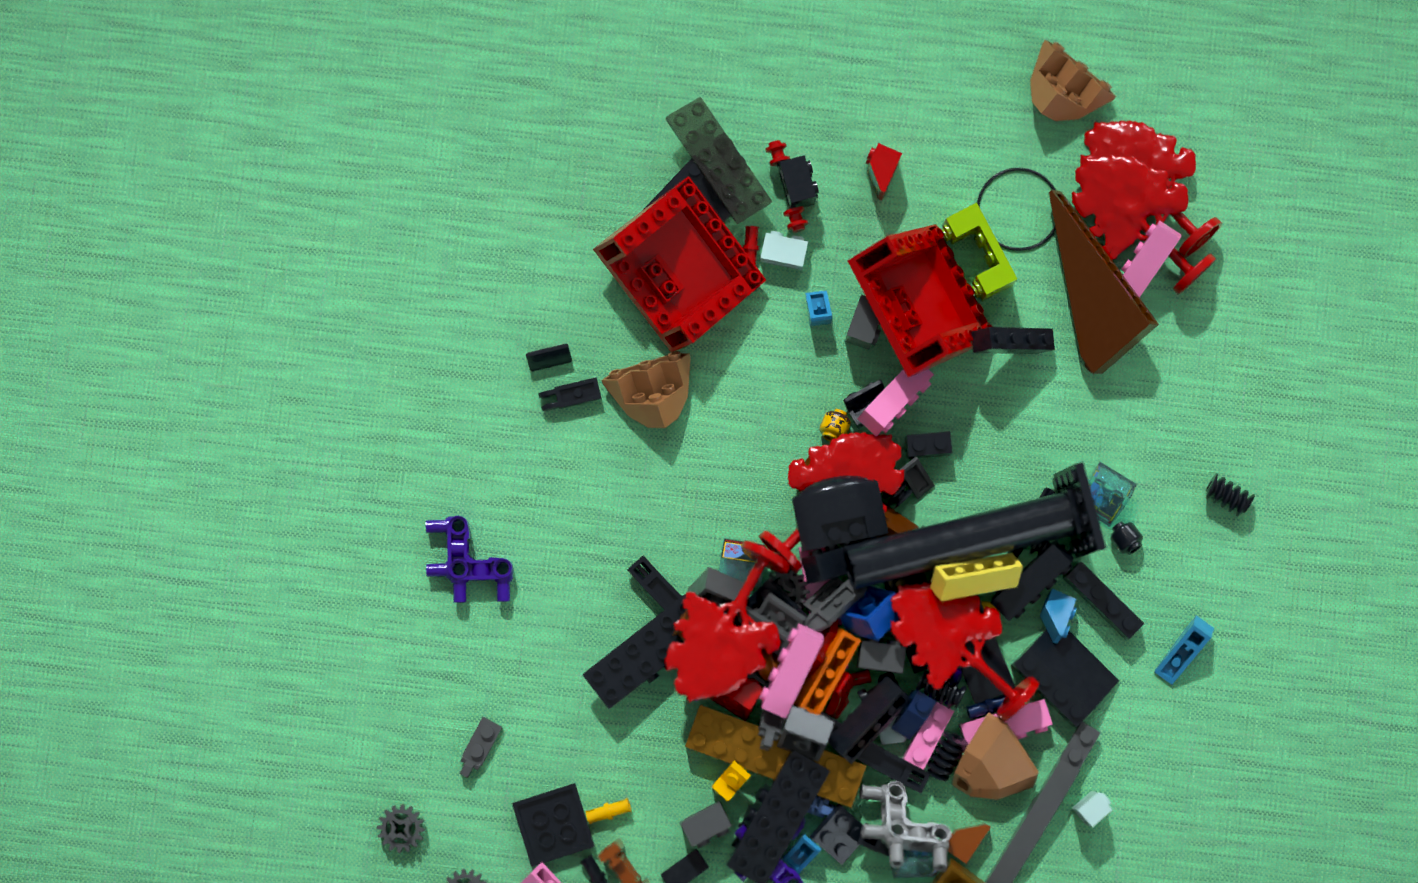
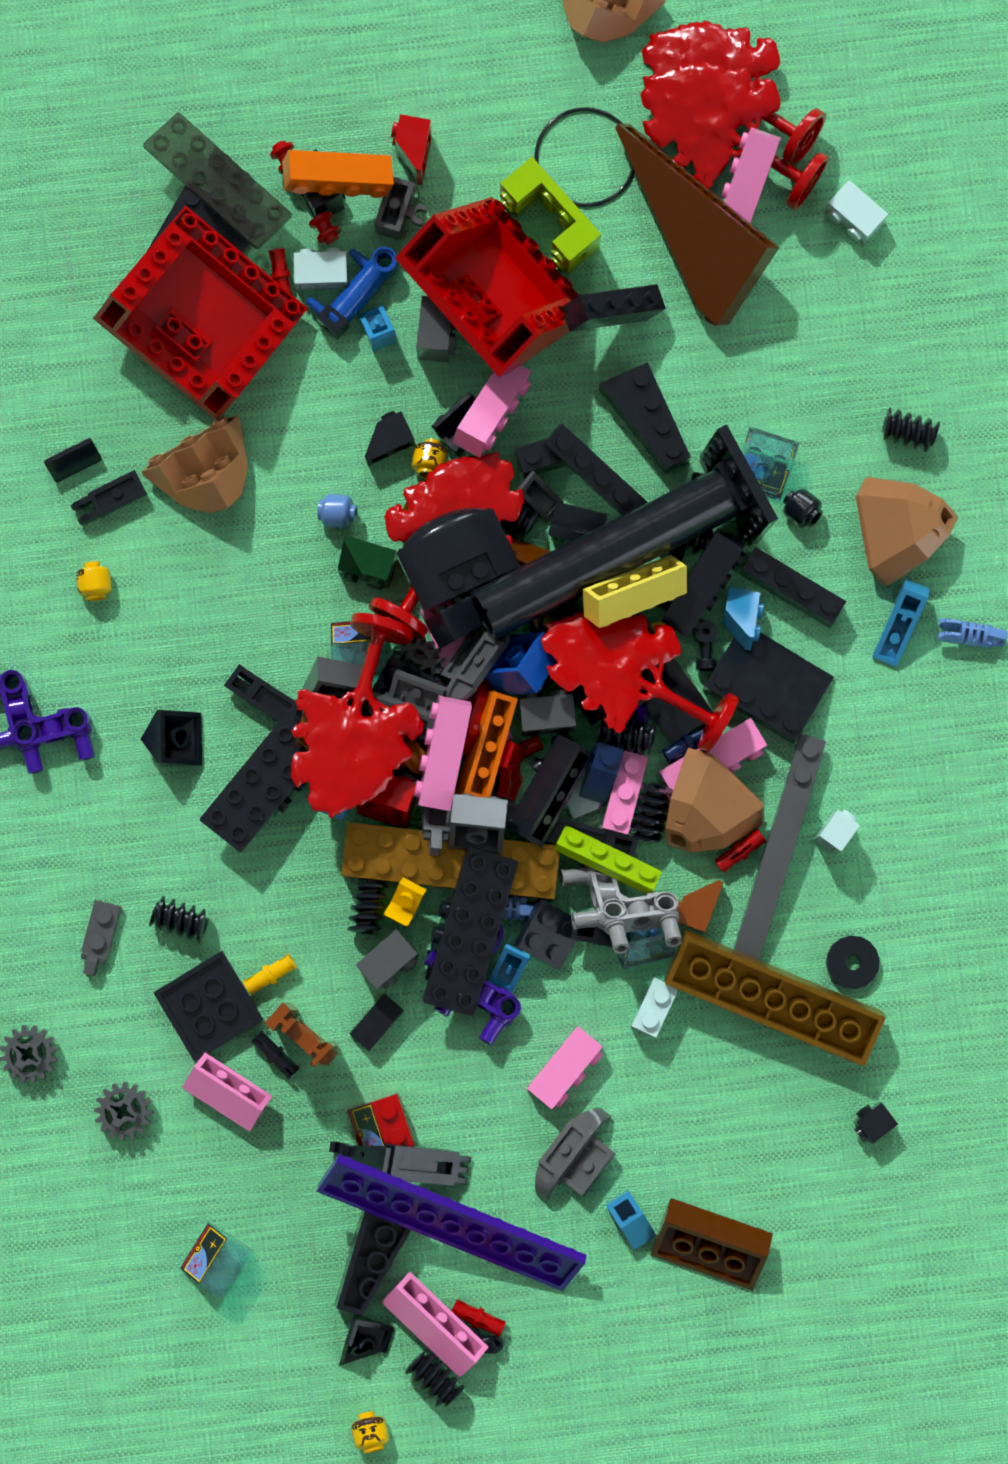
camera: 15 degrees left, 0 degrees up
(542, 459) = (93, 581): none -> yellow head
(547, 749) = (179, 919): none -> black piece
(577, 602) = (175, 738): none -> black slope
(699, 776) = (367, 906): none -> black piece
(750, 450) = (337, 511): none -> medium blue head
(765, 498) = (367, 563): none -> dark green slope
(789, 291) = (337, 316): none -> blue piece
(807, 400) = (389, 437): none -> black slope
(817, 180) = (337, 173): none -> orange brick
(857, 216) = (397, 208): none -> dark grey brick
(902, 787) = (607, 860): none -> lime plate
(940, 505) = (573, 521): none -> black panel
(966, 469) = (593, 470): none -> black plate
(1010, 803) = (740, 850): none -> red pin
(1018, 428) = (645, 411): none -> black wedge
(1023, 623) = (705, 637): none -> black leg
(1202, 572) = (900, 526): none -> medium nougat brick
(1227, 307) = (856, 212): none -> light aqua brick
(1239, 673) = (971, 633): none -> medium blue hinge

